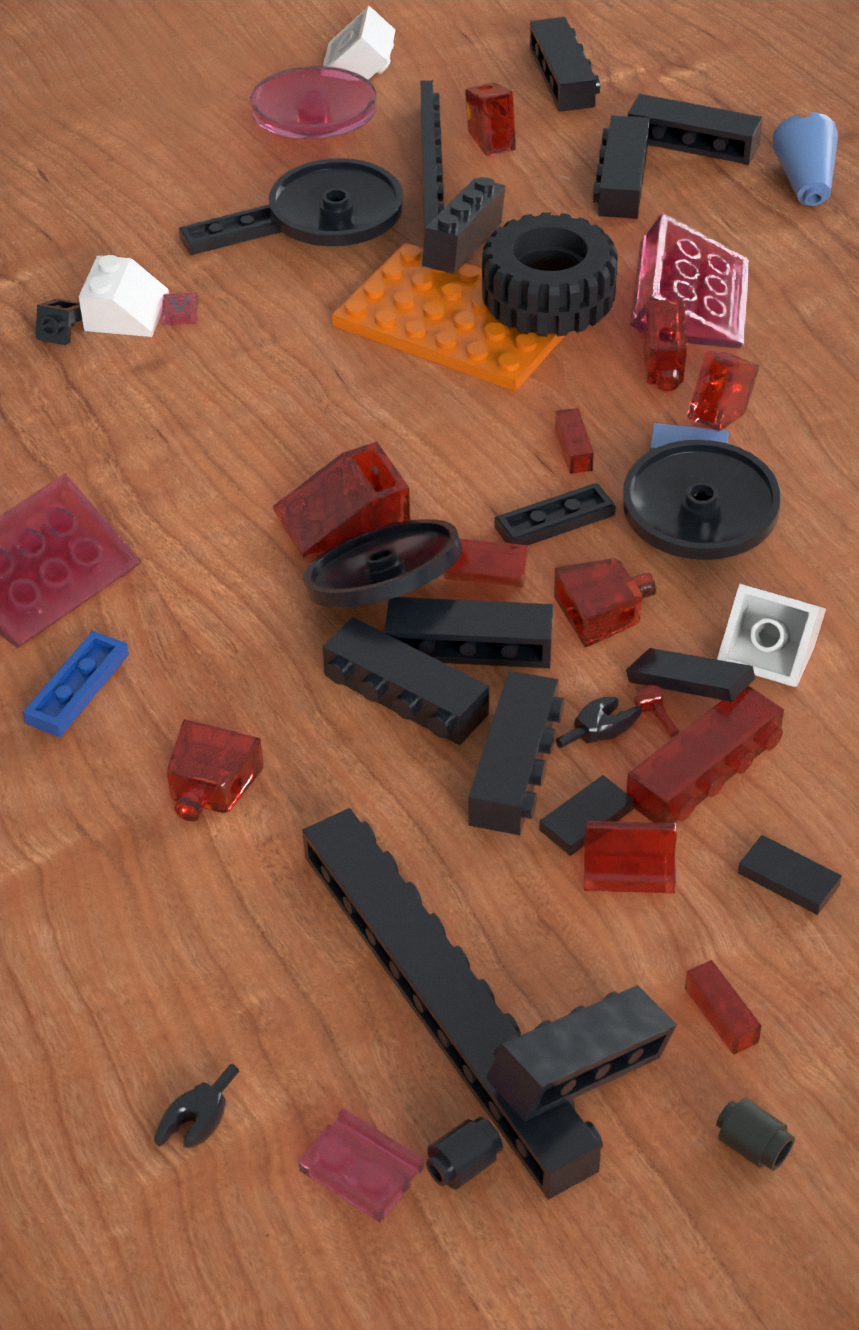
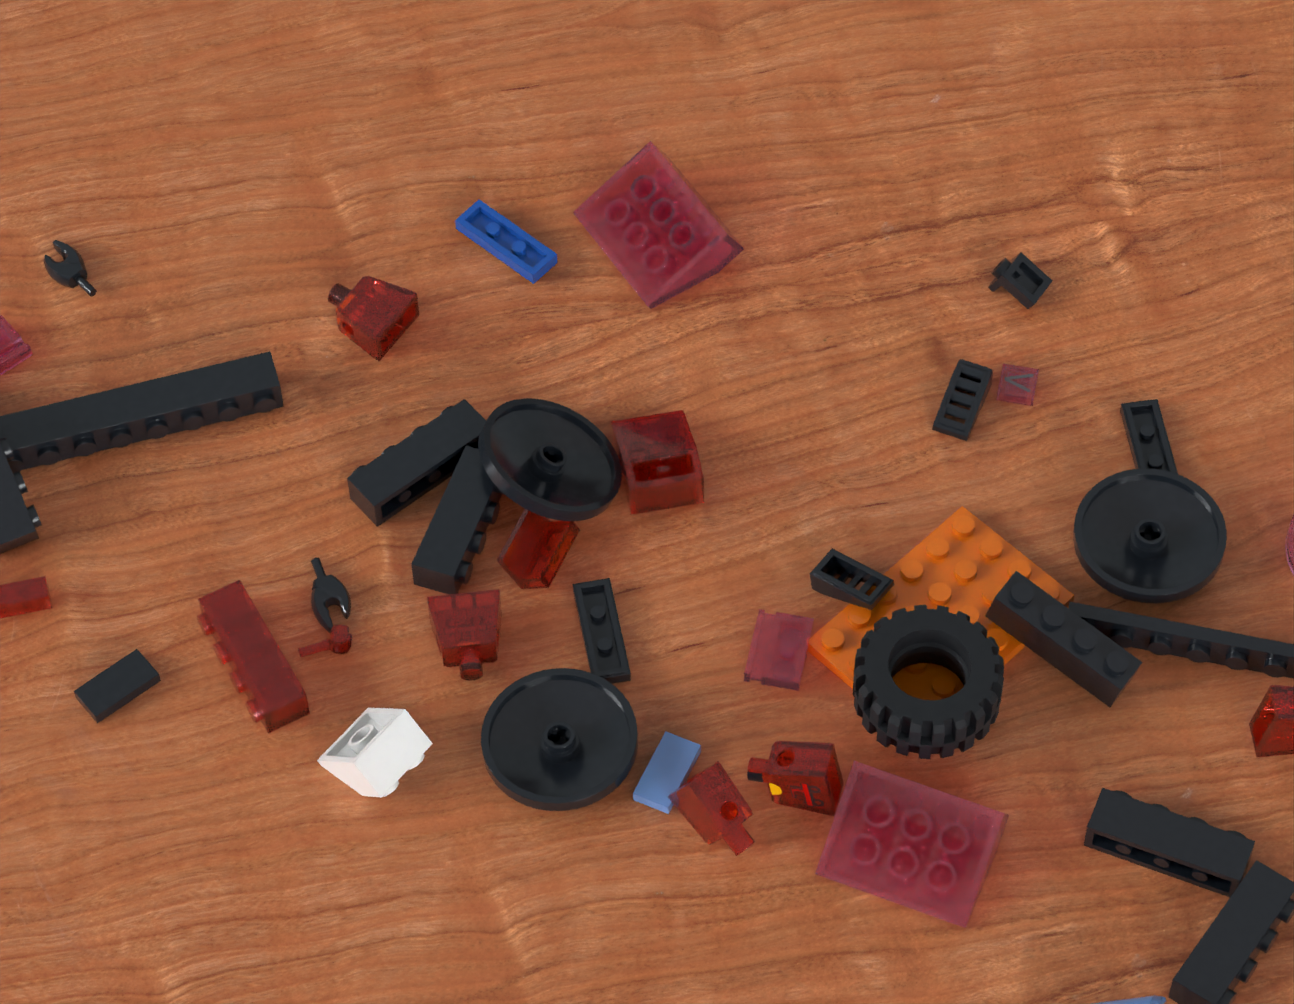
camera: 105 degrees right, 10 degrees up
(121, 298) = (1034, 330): white slope -> none
(208, 333) = (971, 379): none -> black slope
(442, 379) = (837, 563): none -> black slope
(514, 753) = (312, 522): black brick -> none
(530, 394) = (779, 650): none -> clear pink plate
(574, 440) = (700, 671): clear red piece -> none
(596, 802) = (234, 559): black tile -> none
(630, 857) = (170, 576): clear red panel -> none
(691, 674) = (339, 663): black tile -> none

